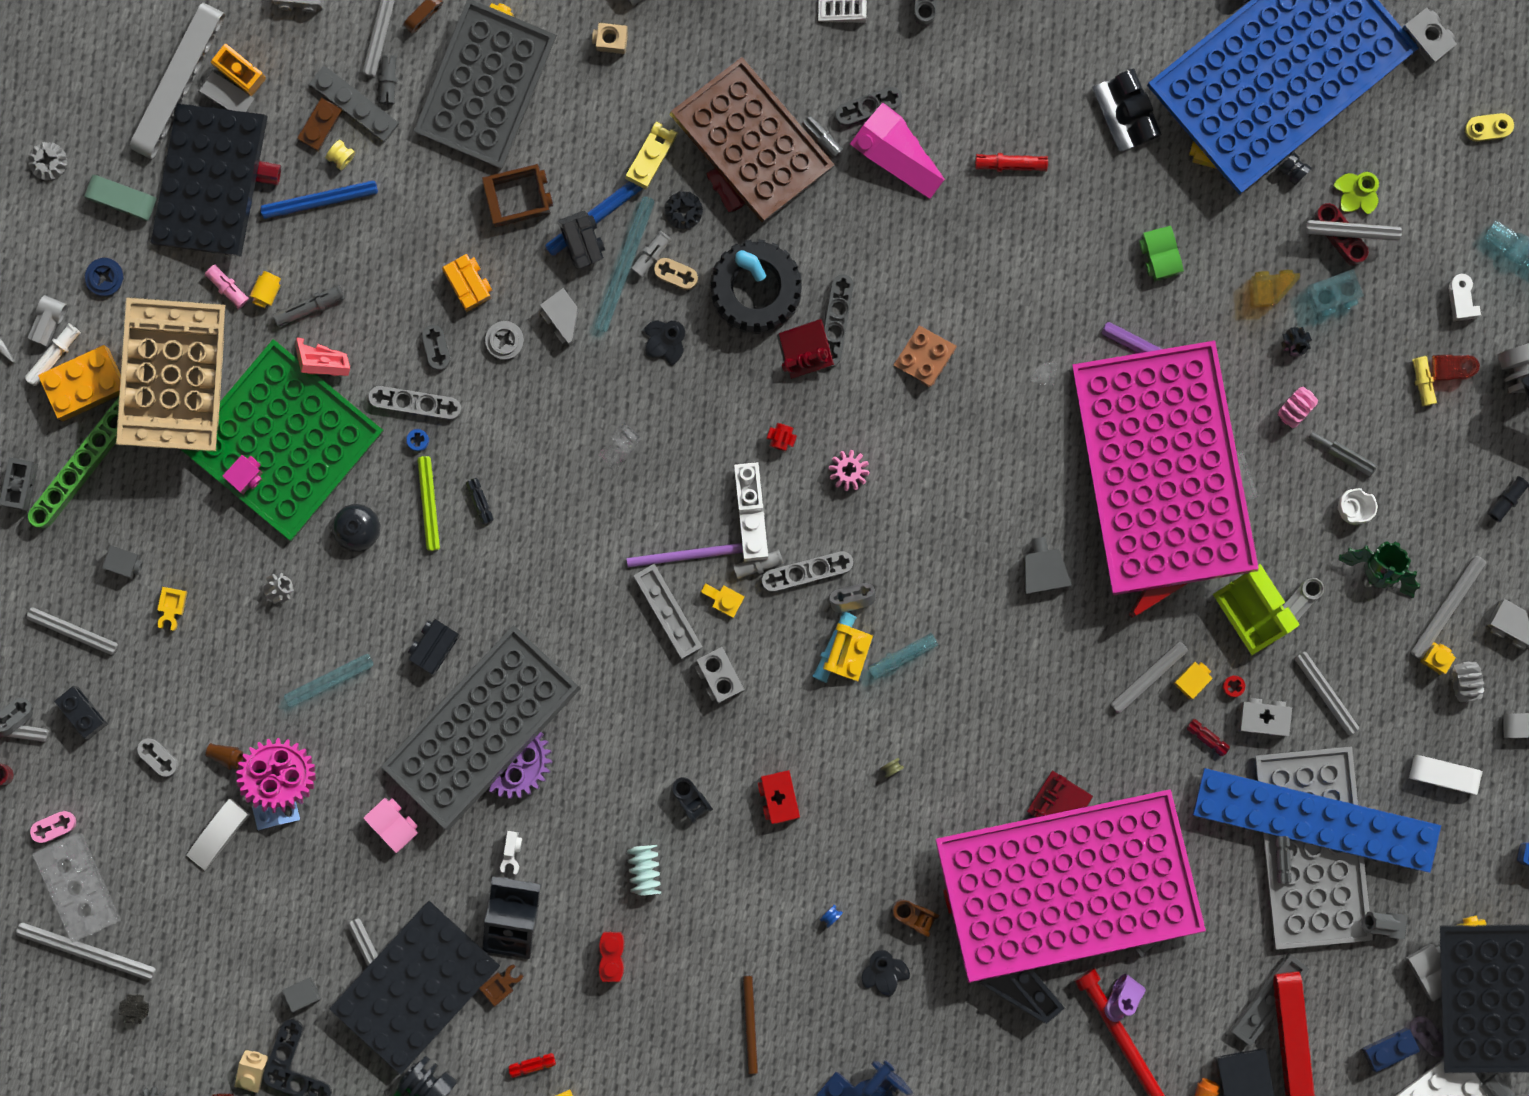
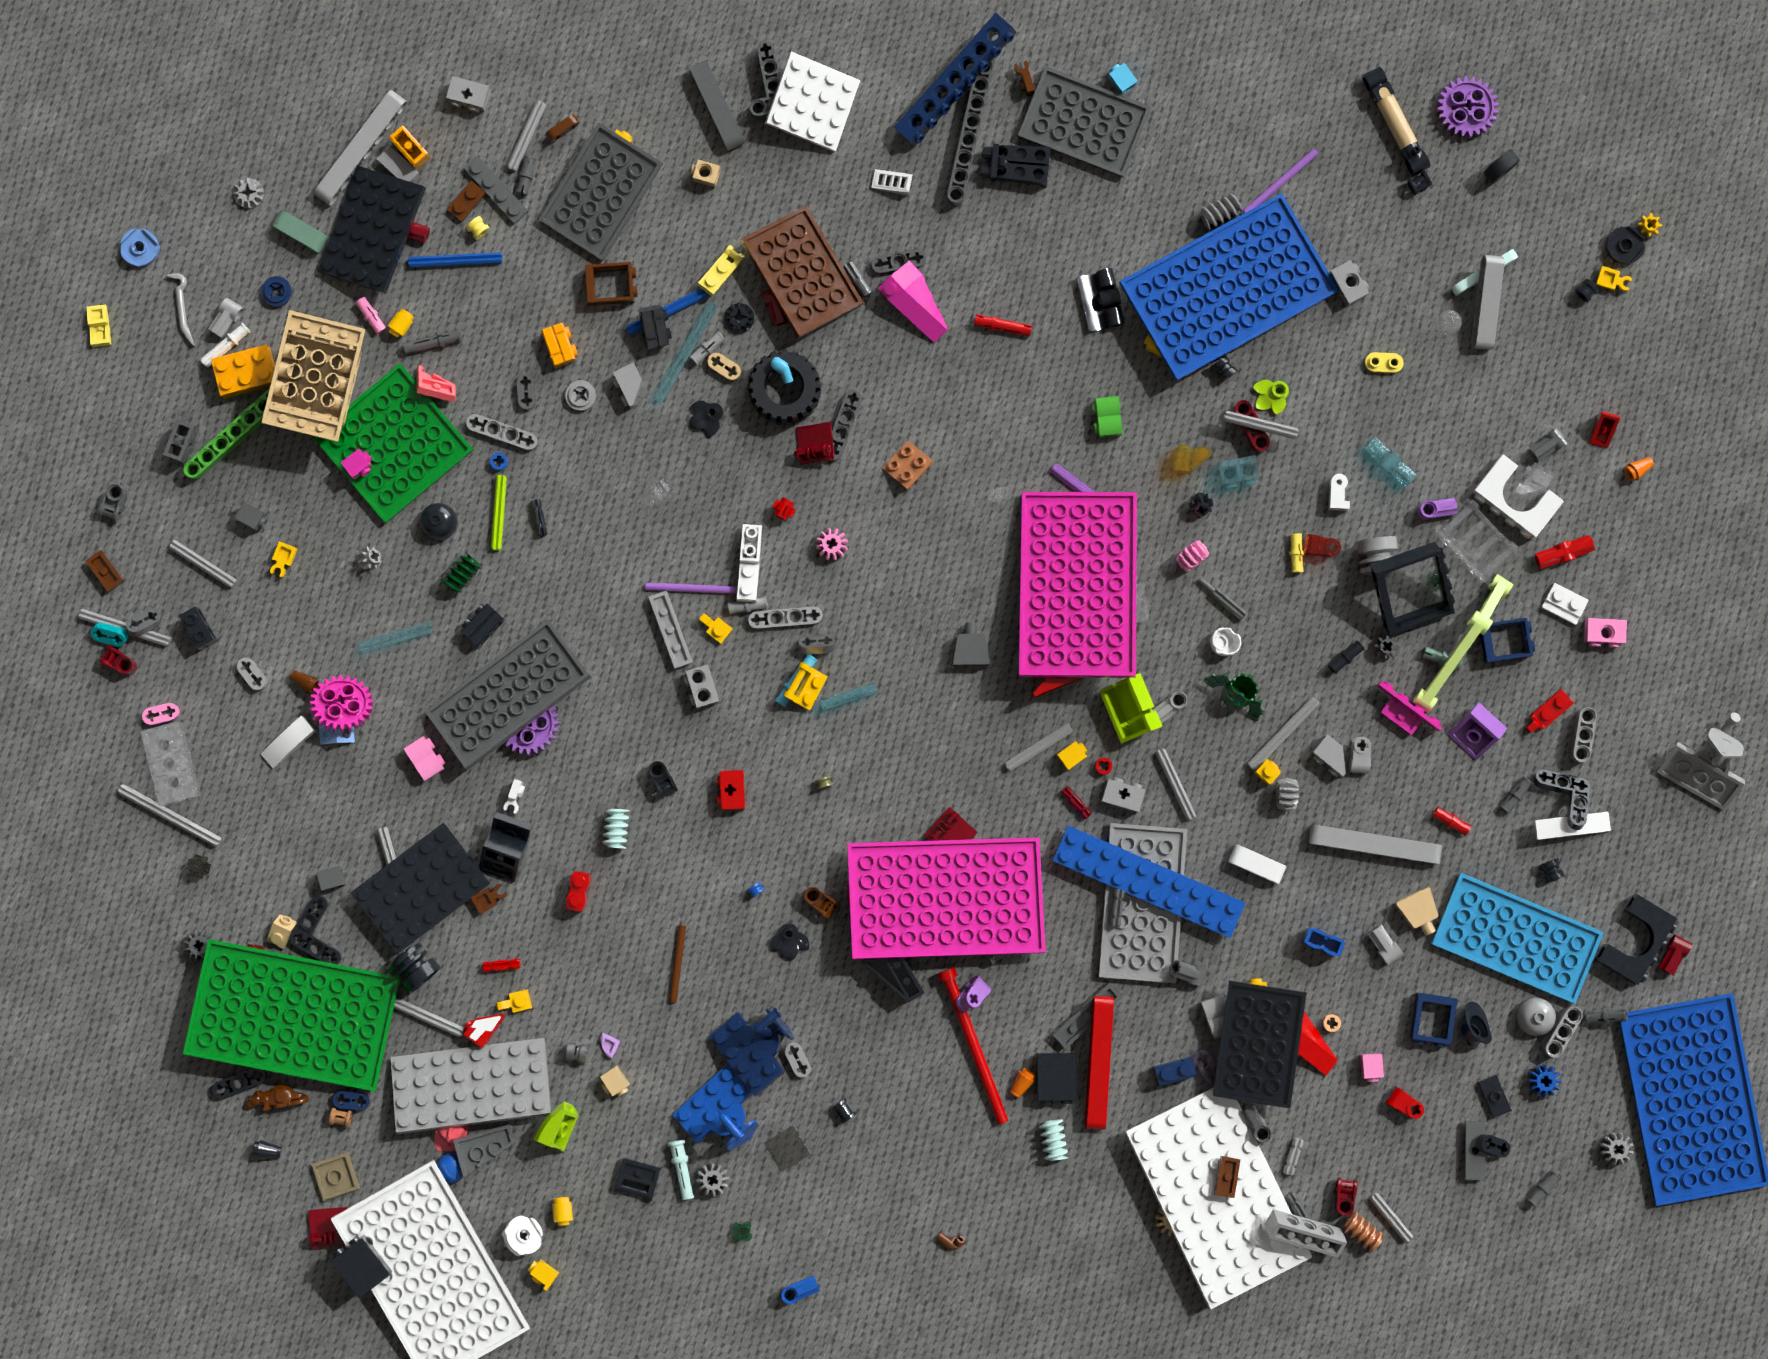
camera: 10 degrees right, 0 degrees up
(396, 586) = (461, 573): none -> dark green piece

